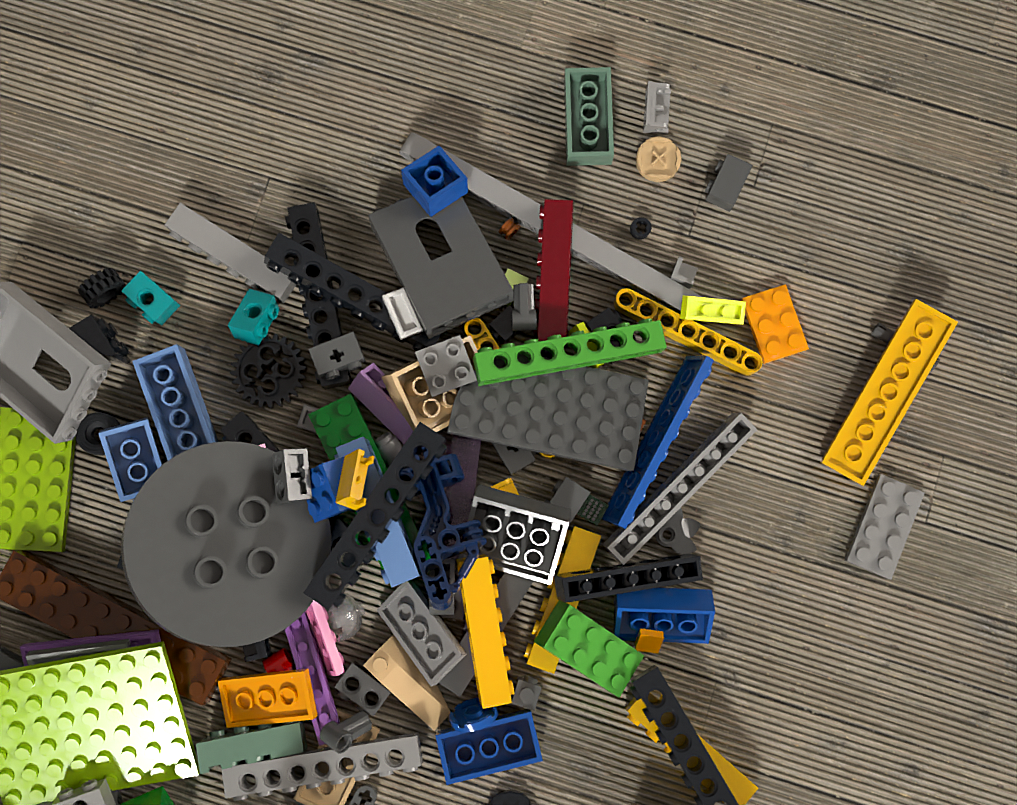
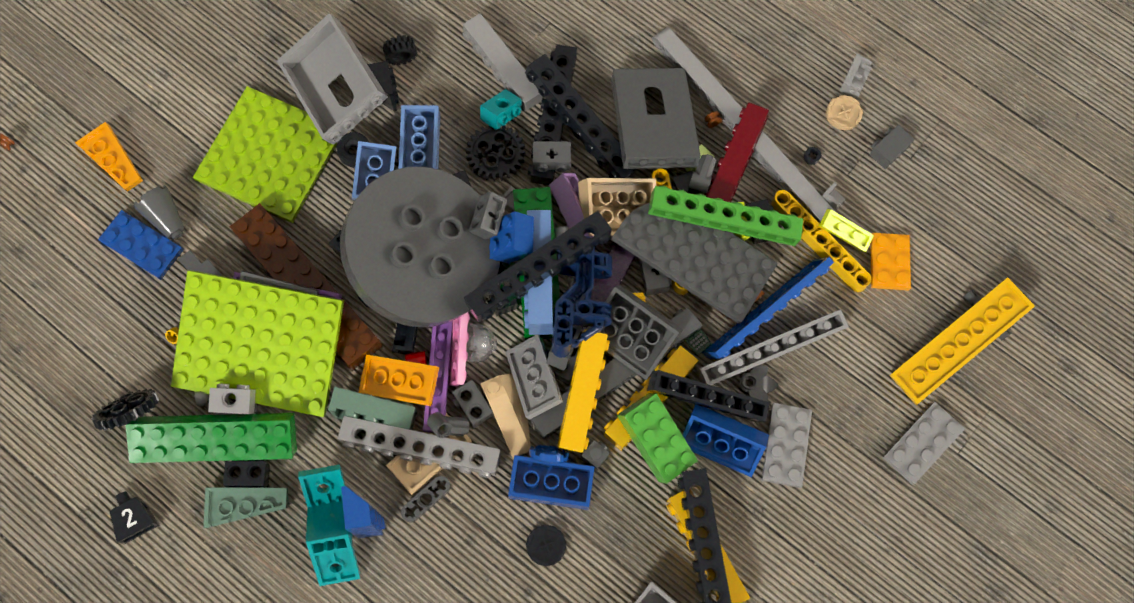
camera: 20 degrees right, 10 degrees down
(142, 287) = (426, 62): teal brick -> none
(353, 480) = (532, 233): yellow hinge -> none
(402, 313) = (611, 144): white tile -> none
(434, 181) = (672, 61): blue brick -> none
(446, 365) = (630, 189): light grey hinge -> none
(588, 116) = (802, 62): sand green brick -> none
(649, 640) = (706, 454): light orange tile -> none
(735, 590) = (787, 445): none -> light grey plate

